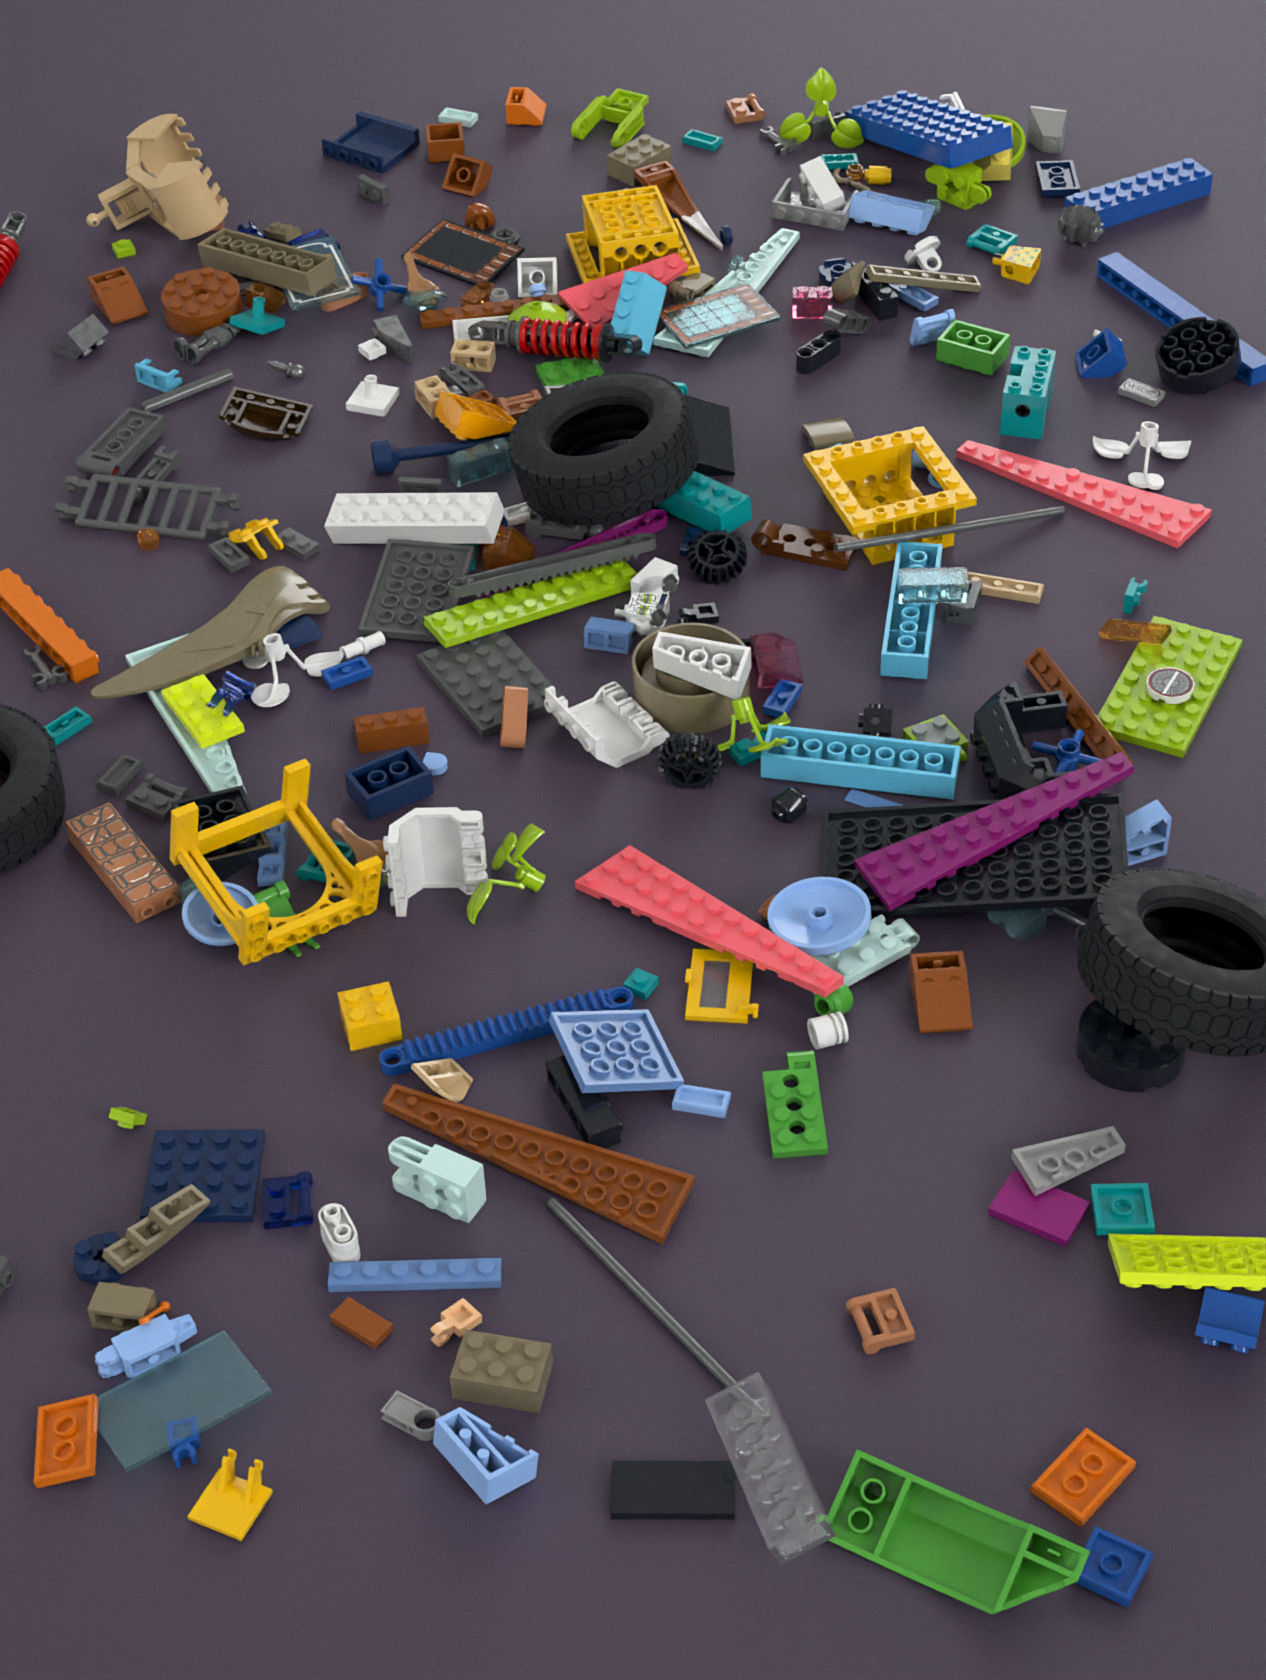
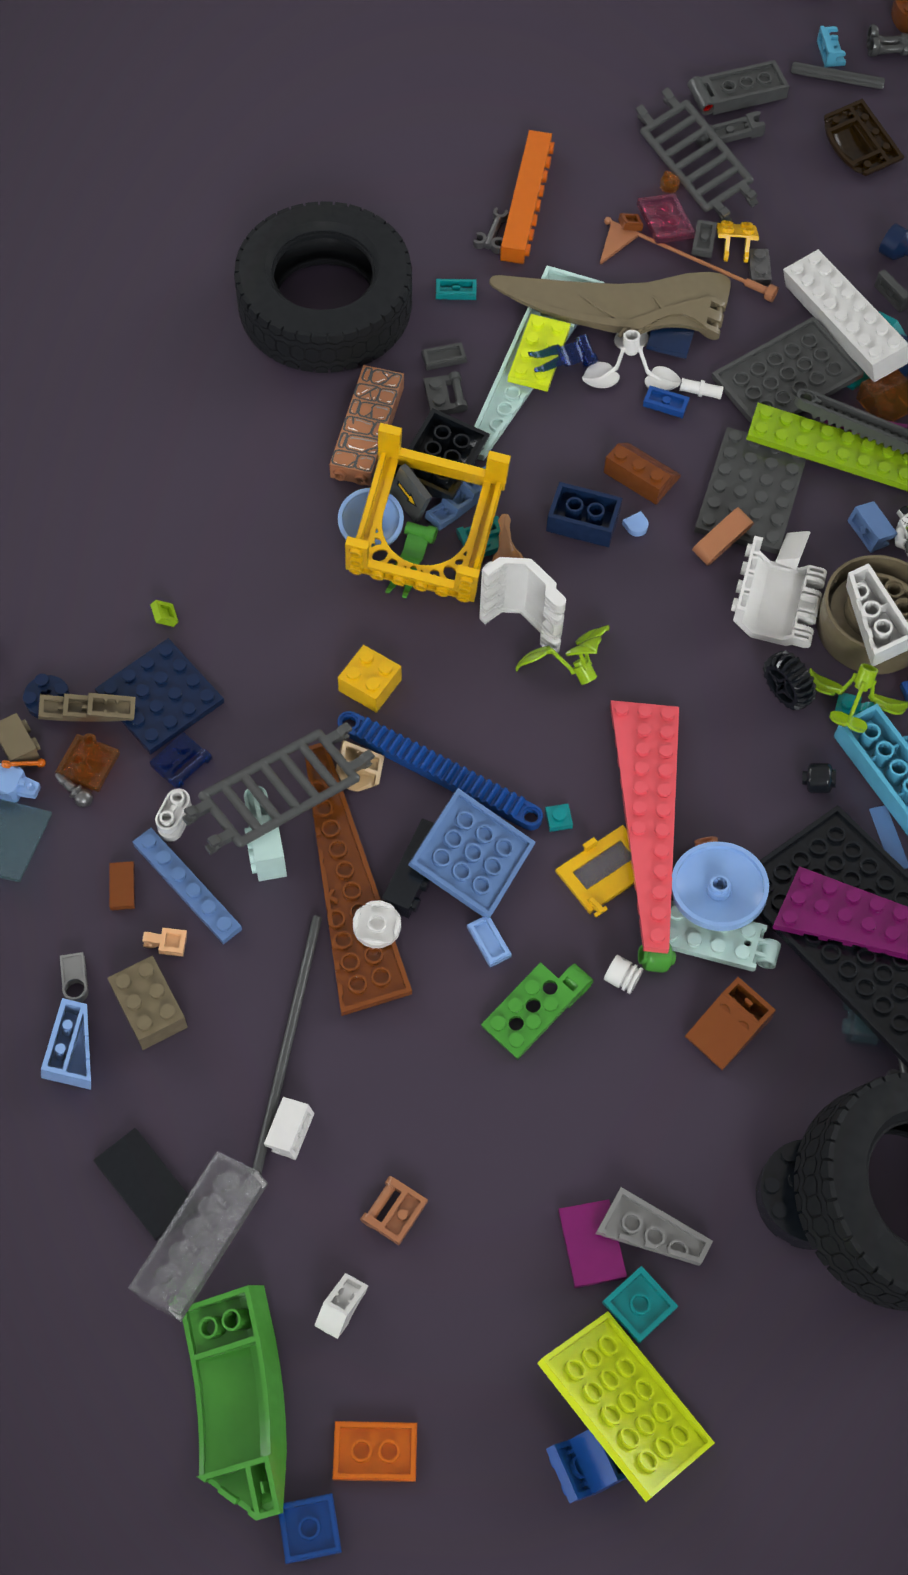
camera: 45 degrees right, 20 degrees up
(153, 583) = (630, 222): none -> dark orange tile
(158, 600) = (619, 238): none -> nougat piece
(180, 561) = (665, 218): none -> clear pink plate
(208, 1266) = (88, 761): none -> clear orange plate
(234, 865) = (410, 493): none -> dark grey tile
(237, 1297) = (81, 796): none -> flat silver bar
(379, 1120) = (230, 834): none -> dark grey bar
(574, 688) = (792, 549): none -> white slope
(608, 1158) = (377, 924): none -> white tile
(731, 1344) = (289, 1128): none -> white hinge
(933, 1411) = (340, 1305): none -> white arch

